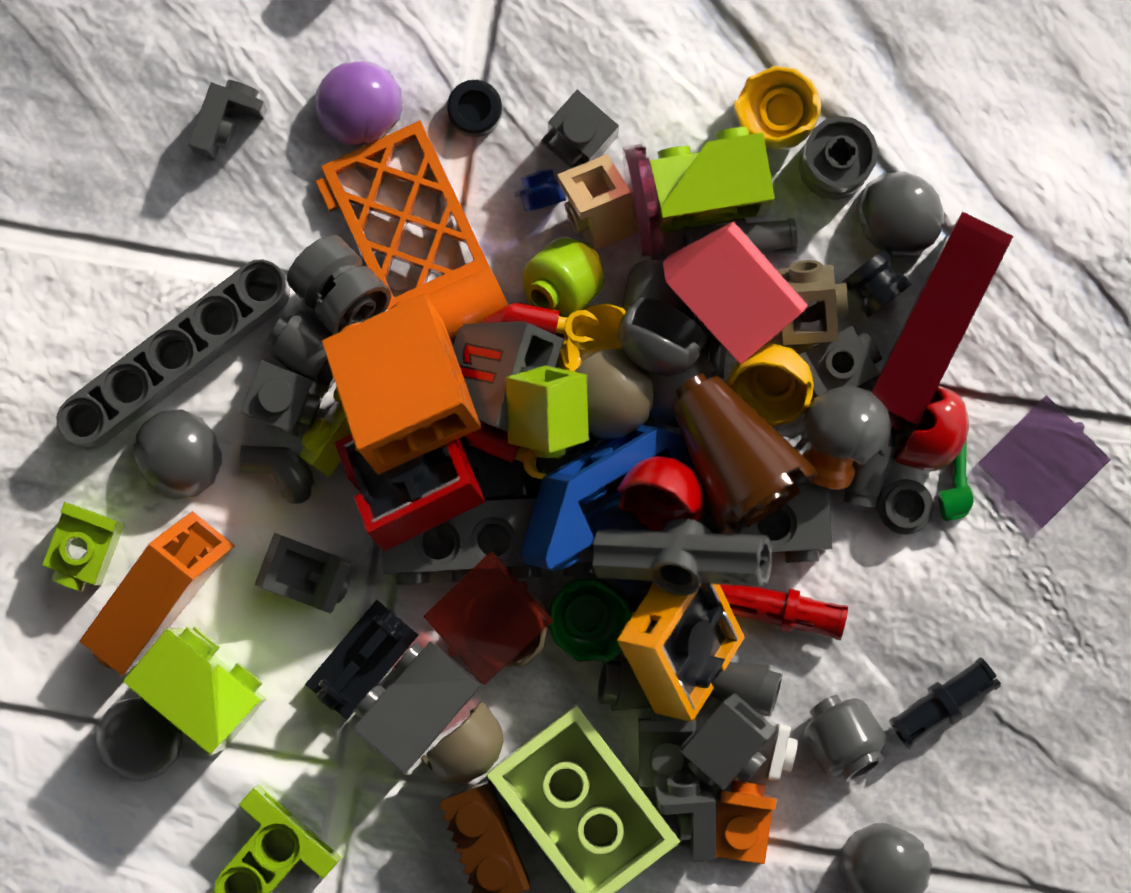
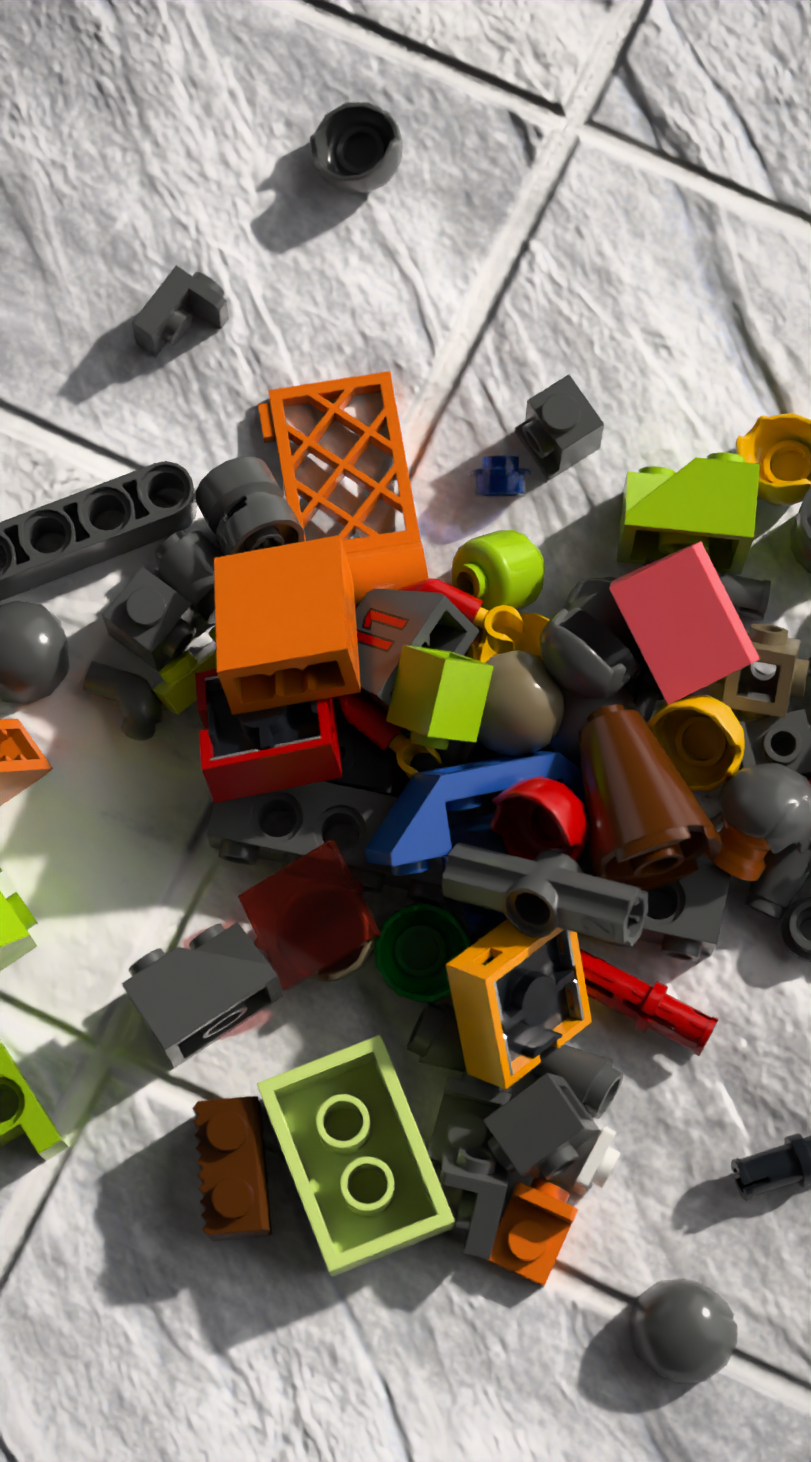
camera: 20 degrees right, 10 degrees down
(304, 573) = (119, 815): dark grey bracket -> none
(358, 102) = (328, 335): medium lavender hair -> none
(361, 659) = (161, 920): black hinge -> none
(468, 749) = (242, 1053): dark tan hair -> none
(474, 108) = (452, 375): black tile -> none
(598, 202) = (559, 502): tan brick -> none
(644, 199) = (608, 511): clear pink tile -> none
(845, 737) = (675, 1166): dark grey head -> none

